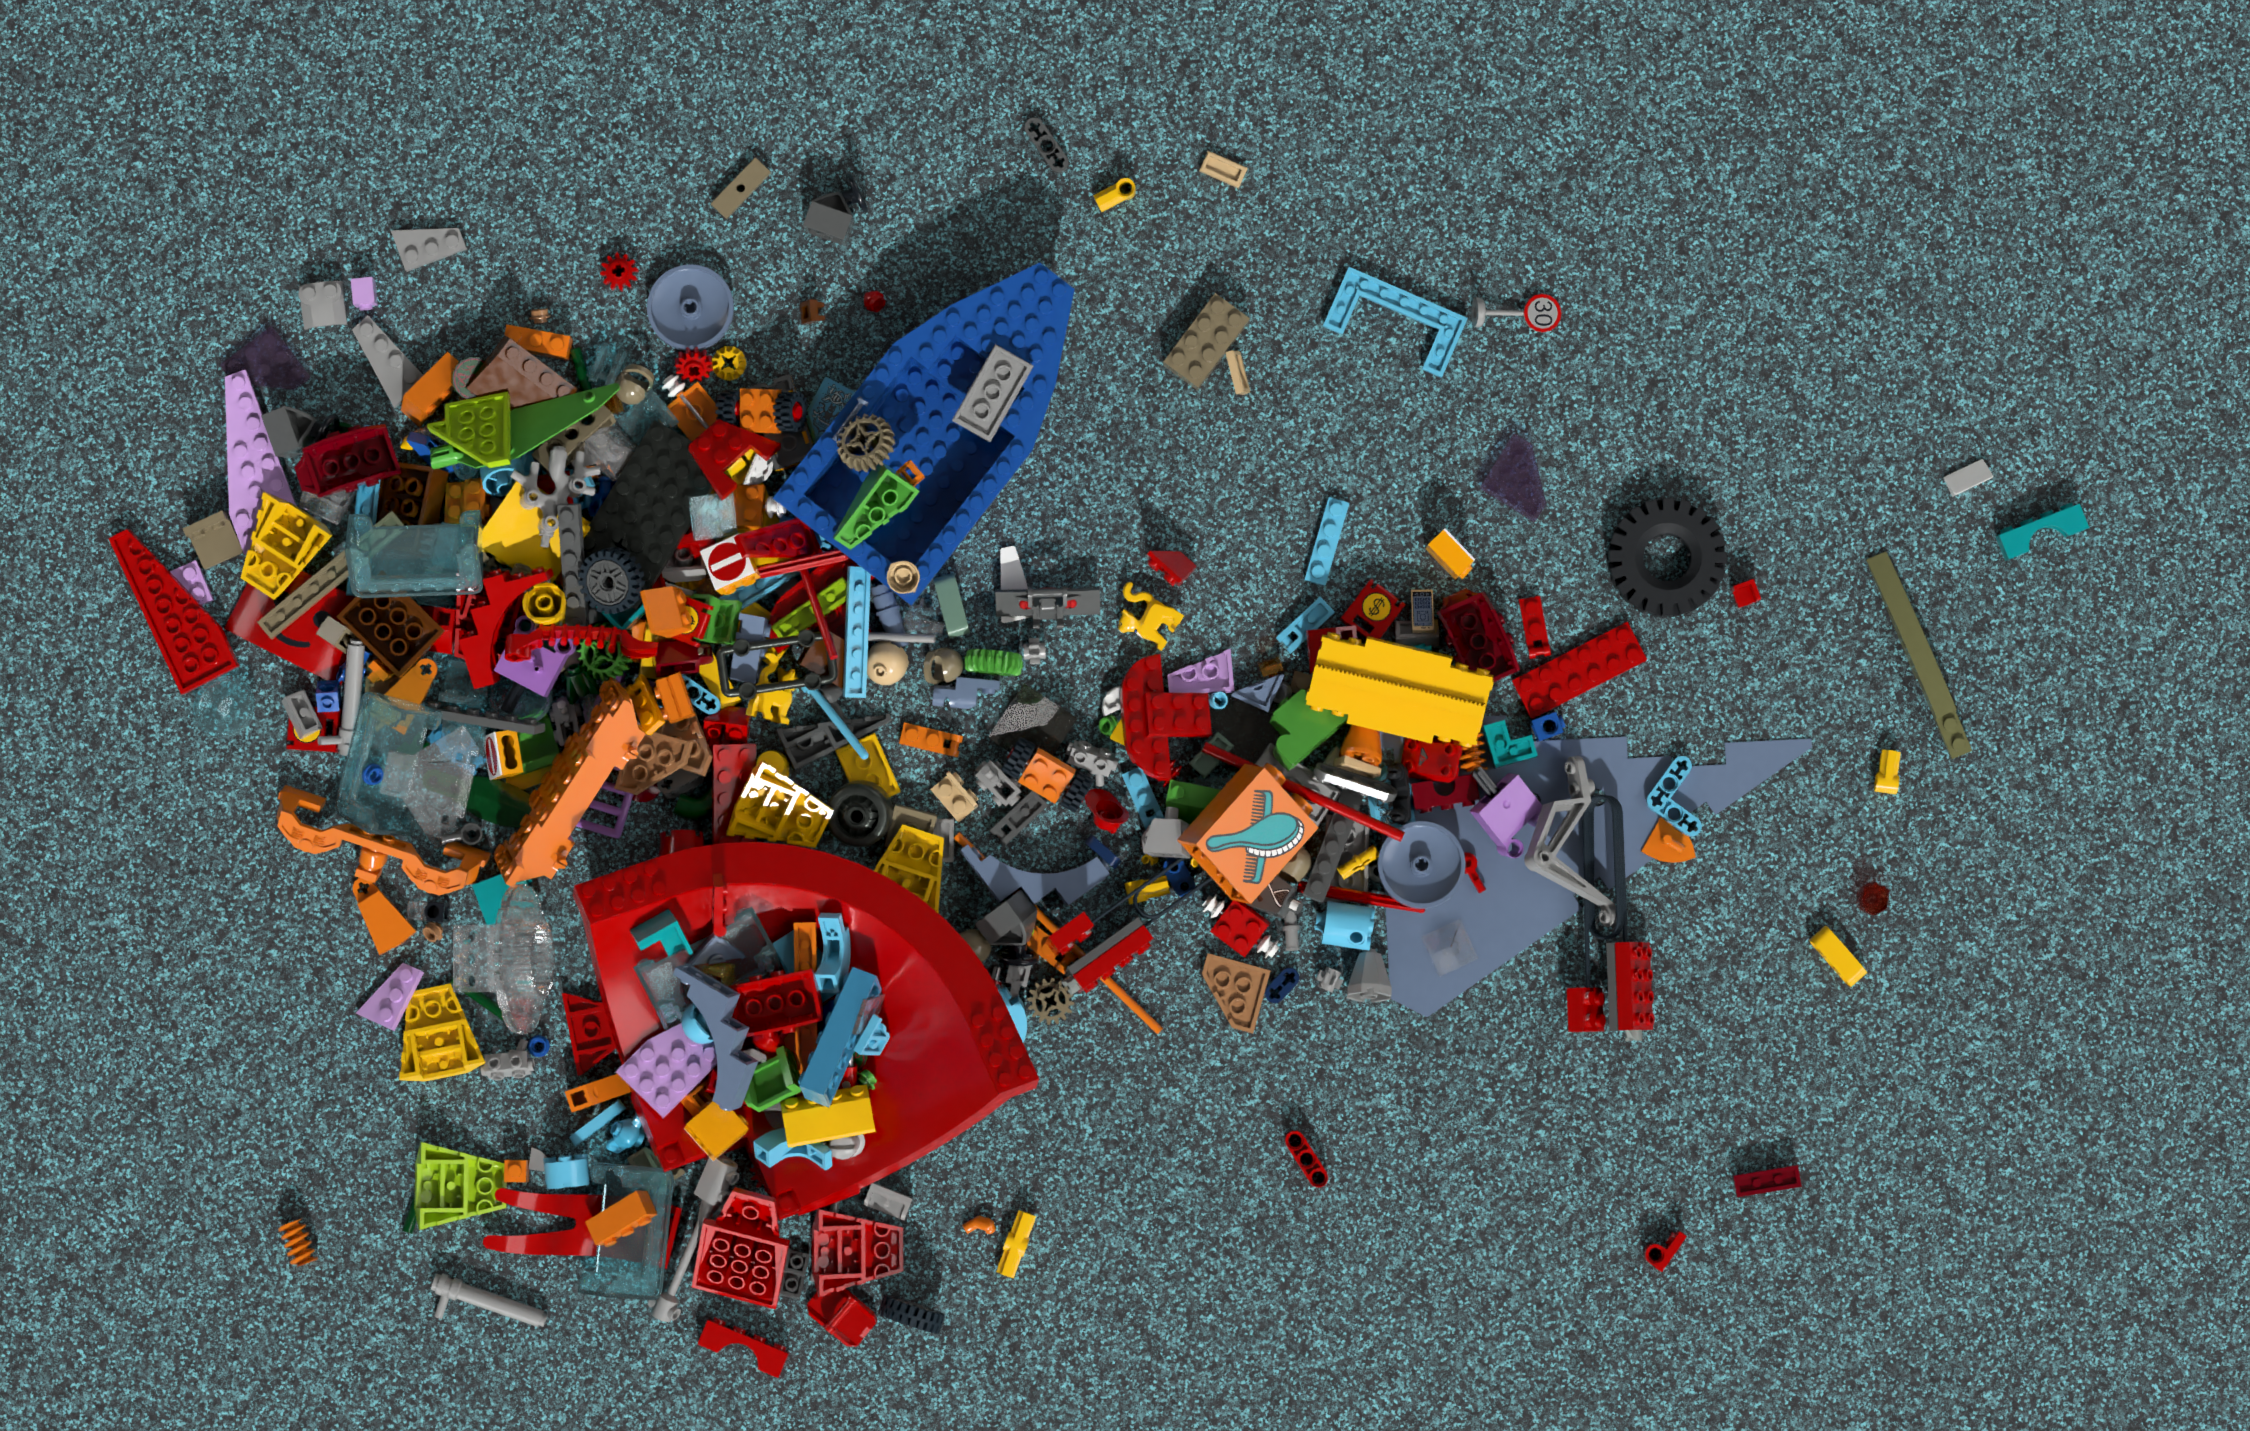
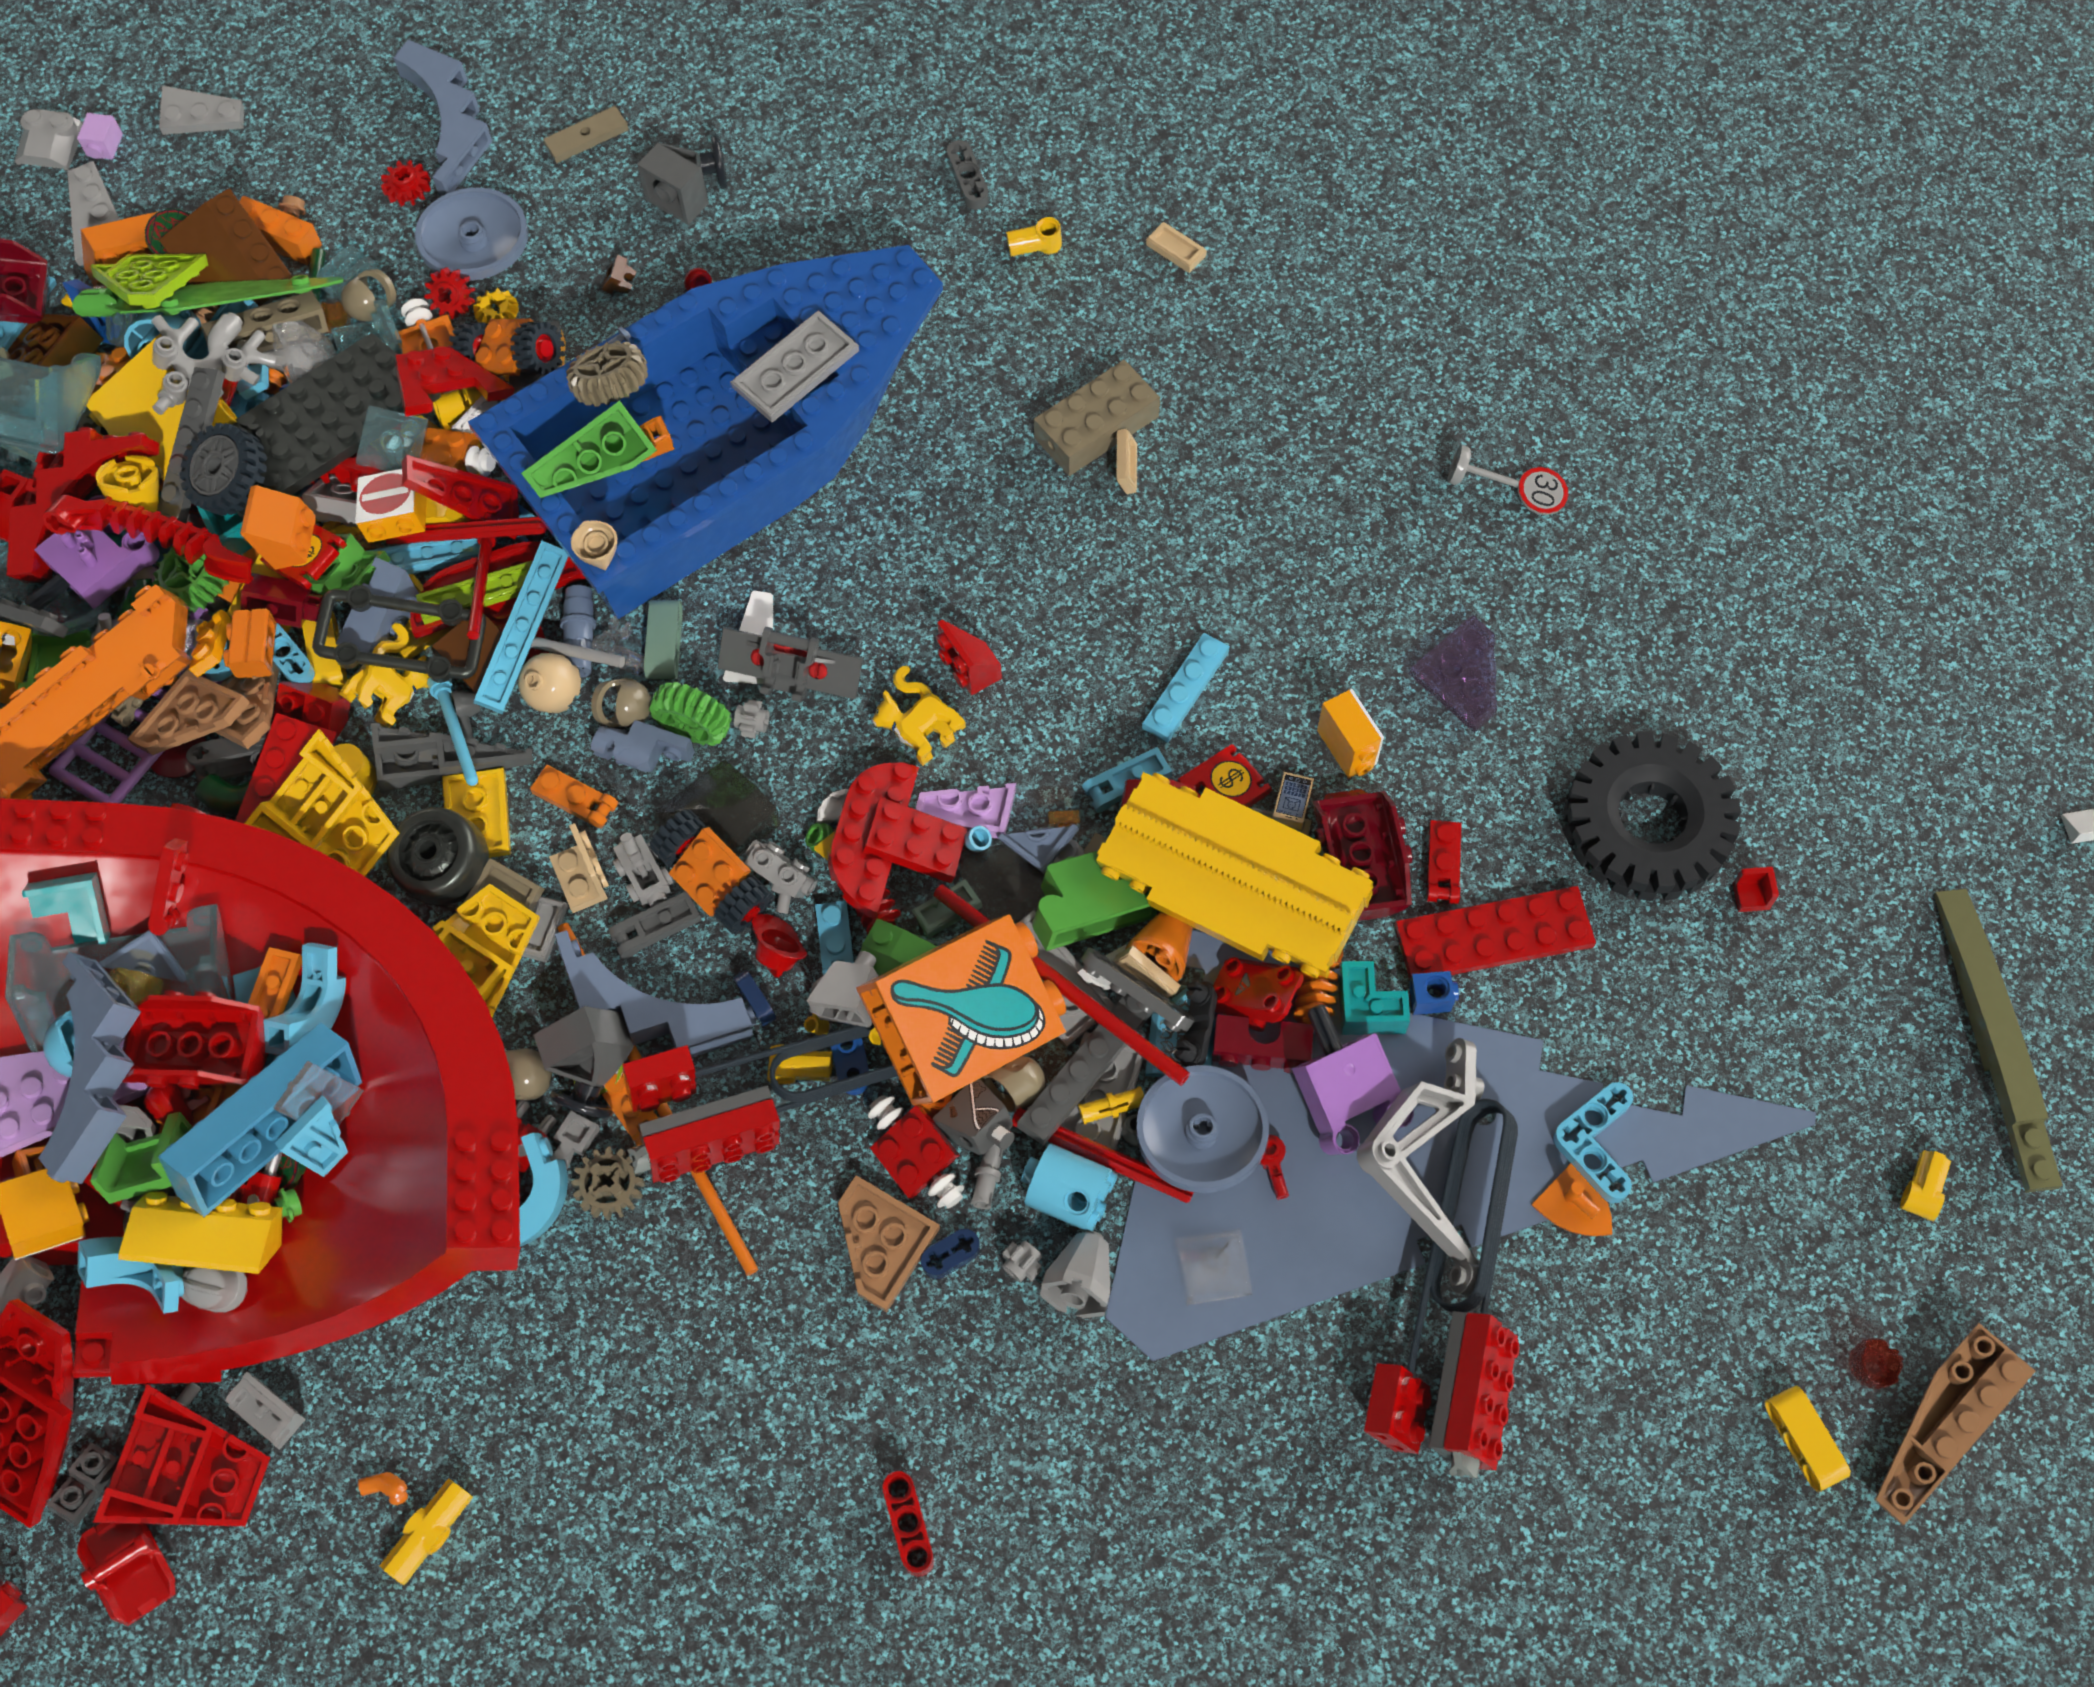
camera: 15 degrees right, 20 degrees down
(645, 216) = (461, 135): none -> sand blue arch
(911, 1314) = (218, 1591): black wheel -> none
(1446, 321) = (1414, 470): medium azure plate -> none
(1921, 922) = (1951, 1417): none -> medium nougat wedge

